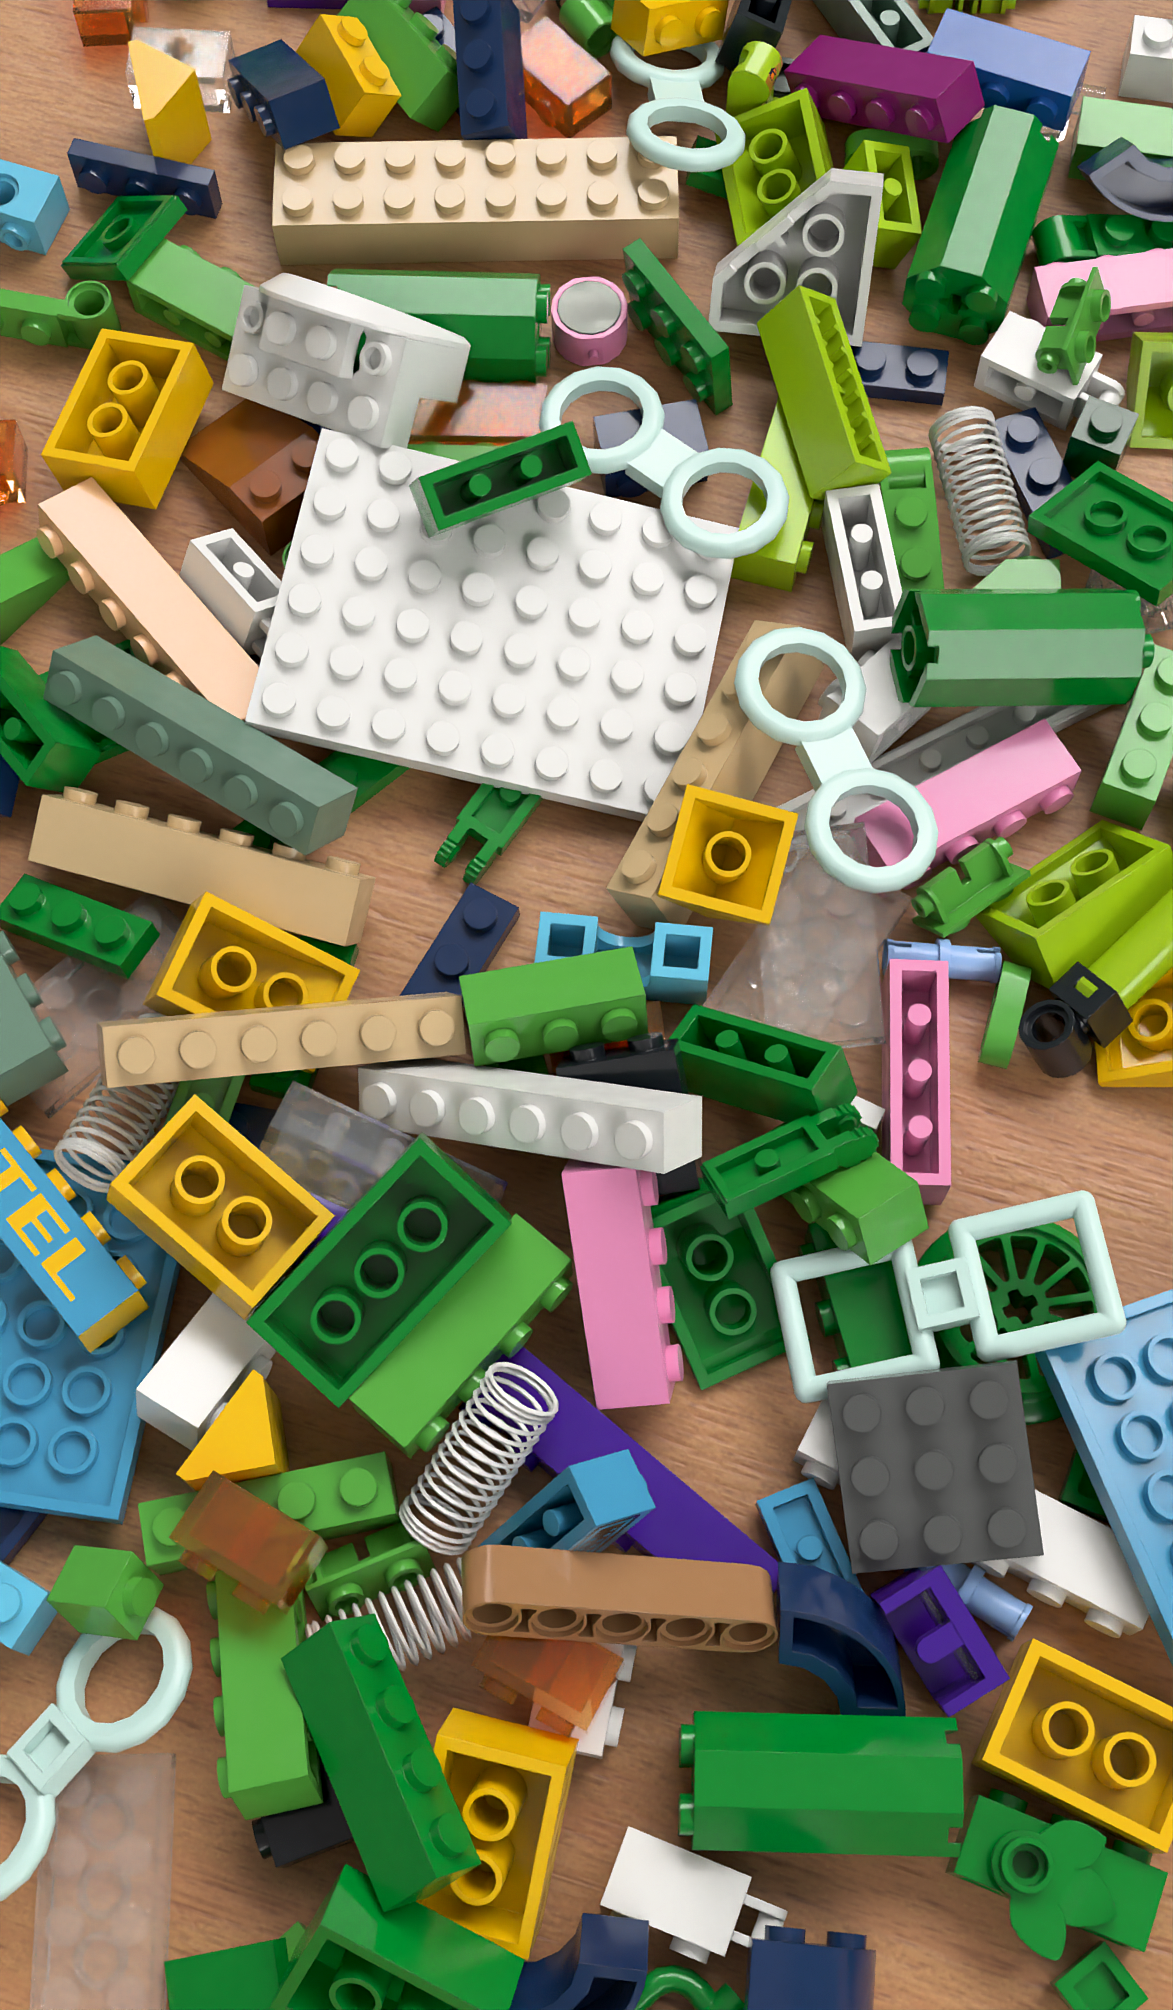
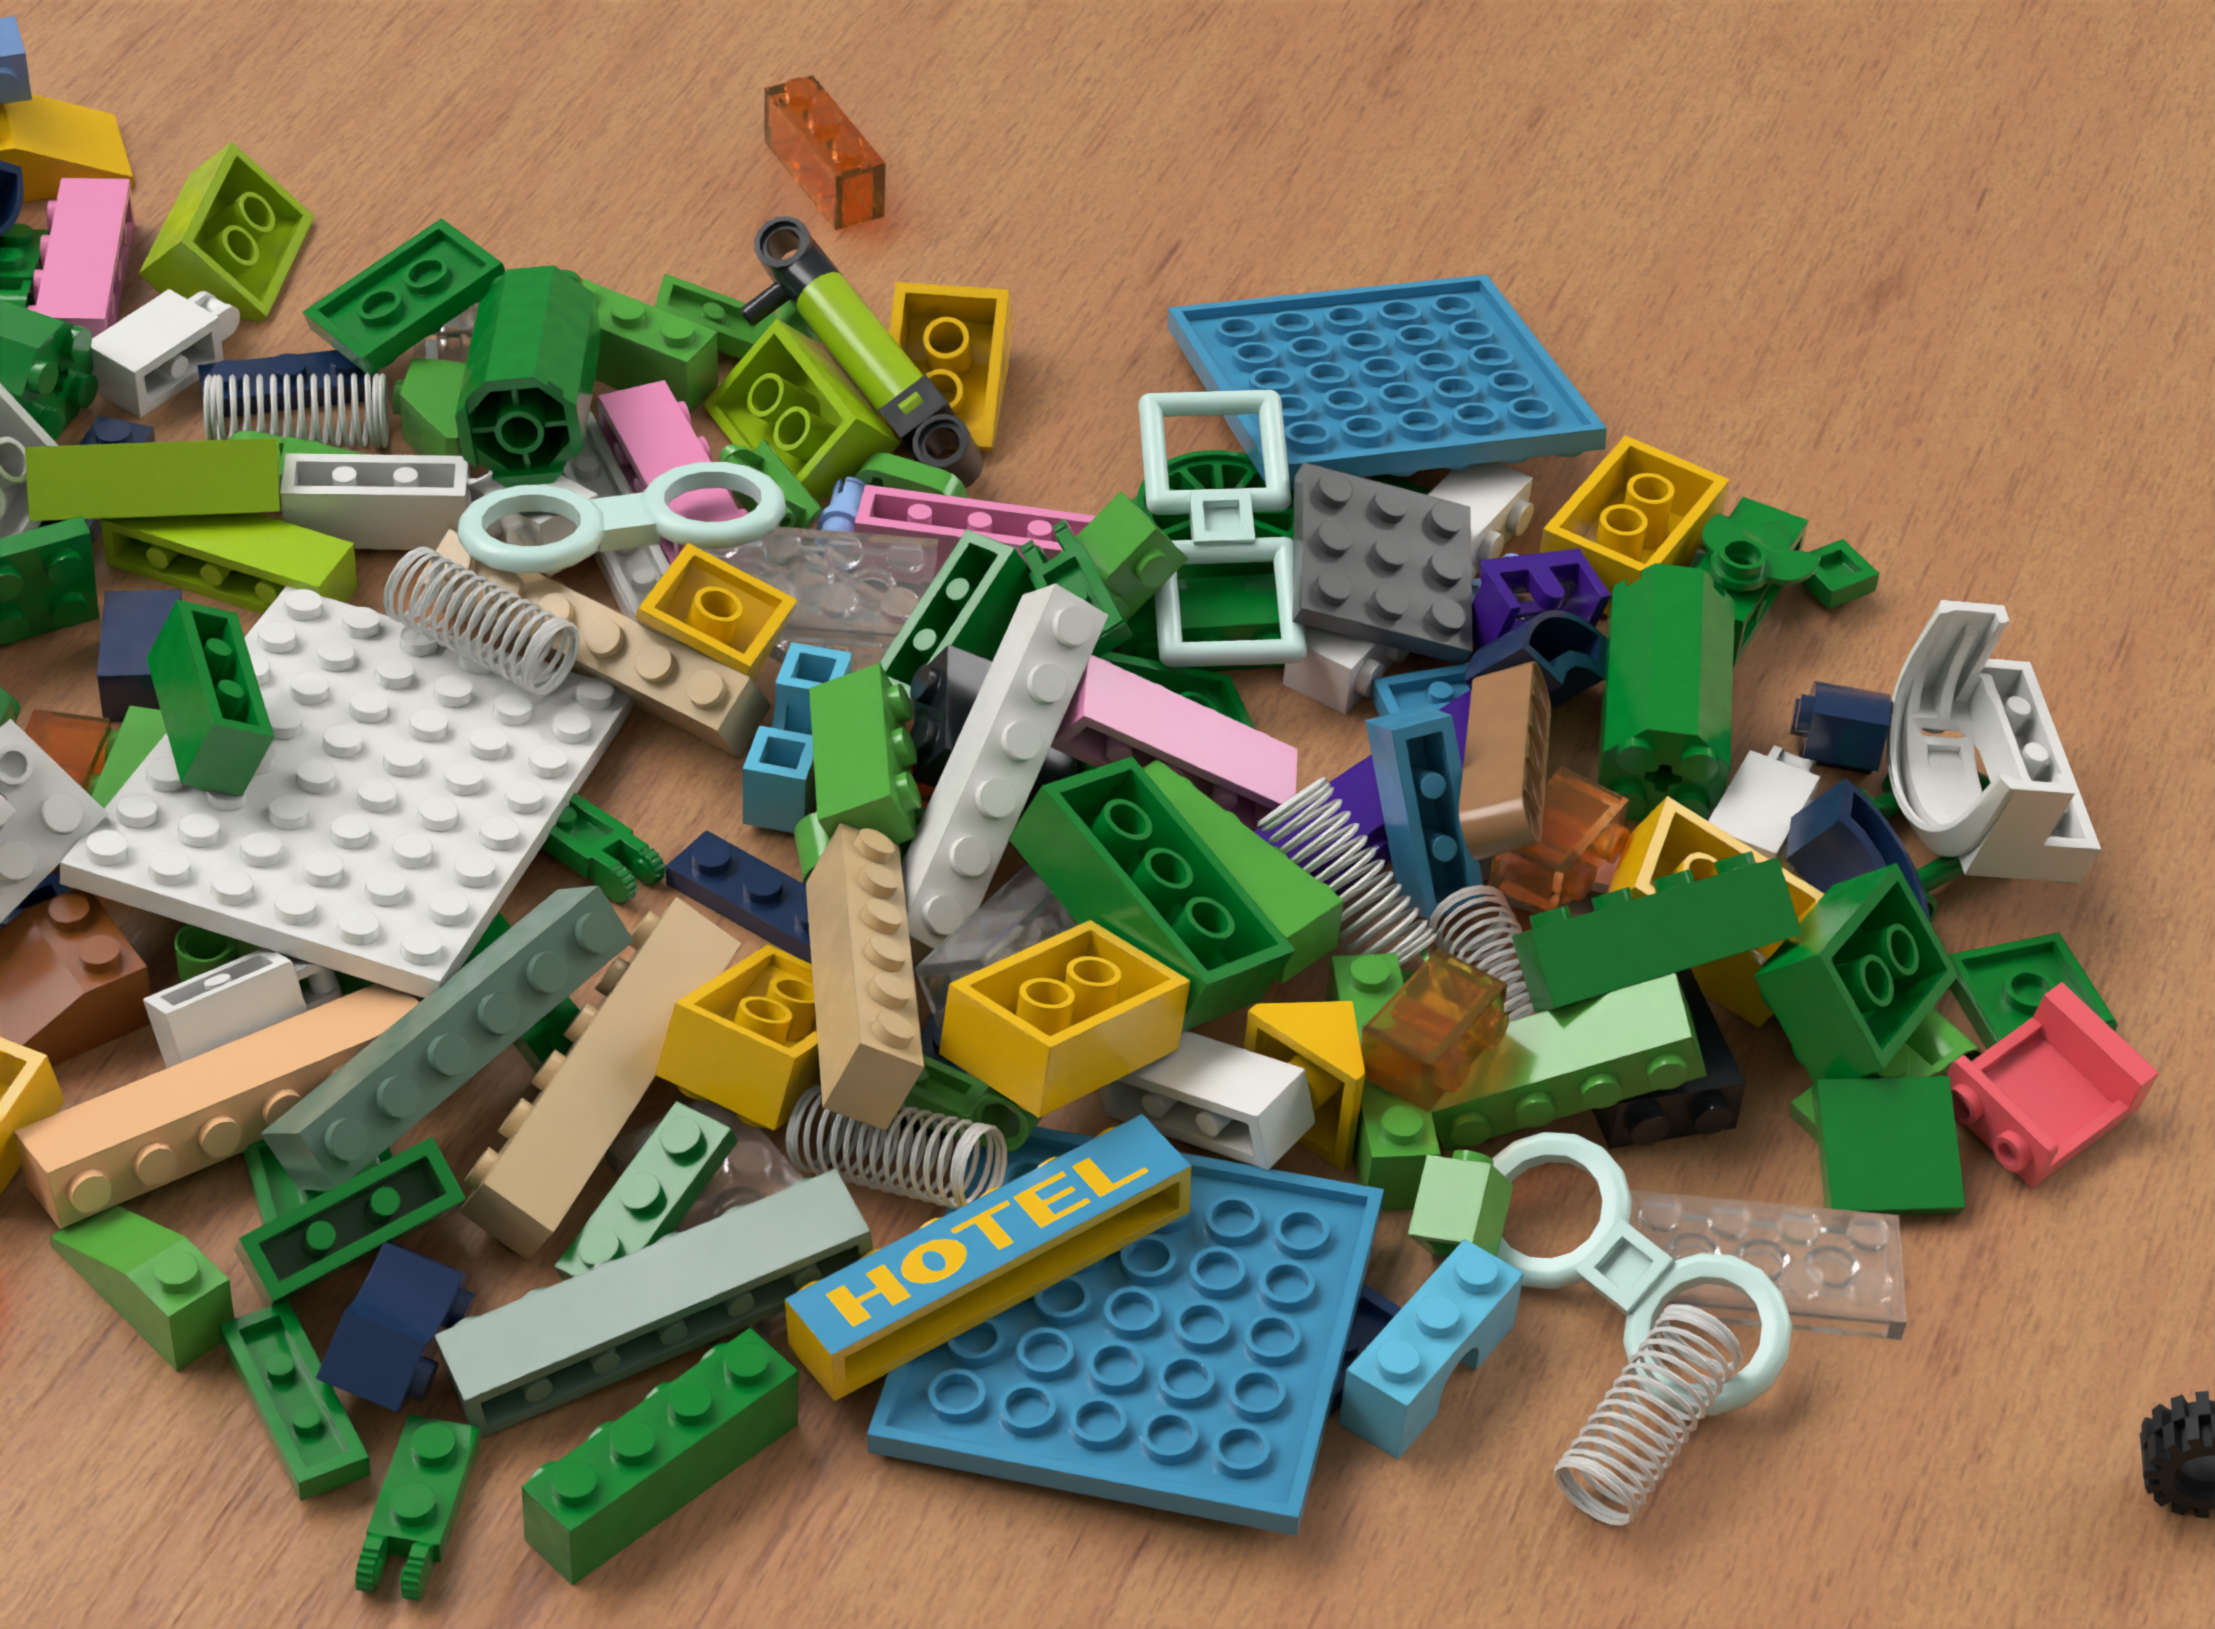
camera: 90 degrees left, 25 degrees down
(654, 717) = (529, 662): none -> white piece
(669, 465) = (206, 590): light aqua bar -> none
(1081, 309) = (156, 294): bright green hinge -> none
(1099, 436) = (266, 318): brick -> none

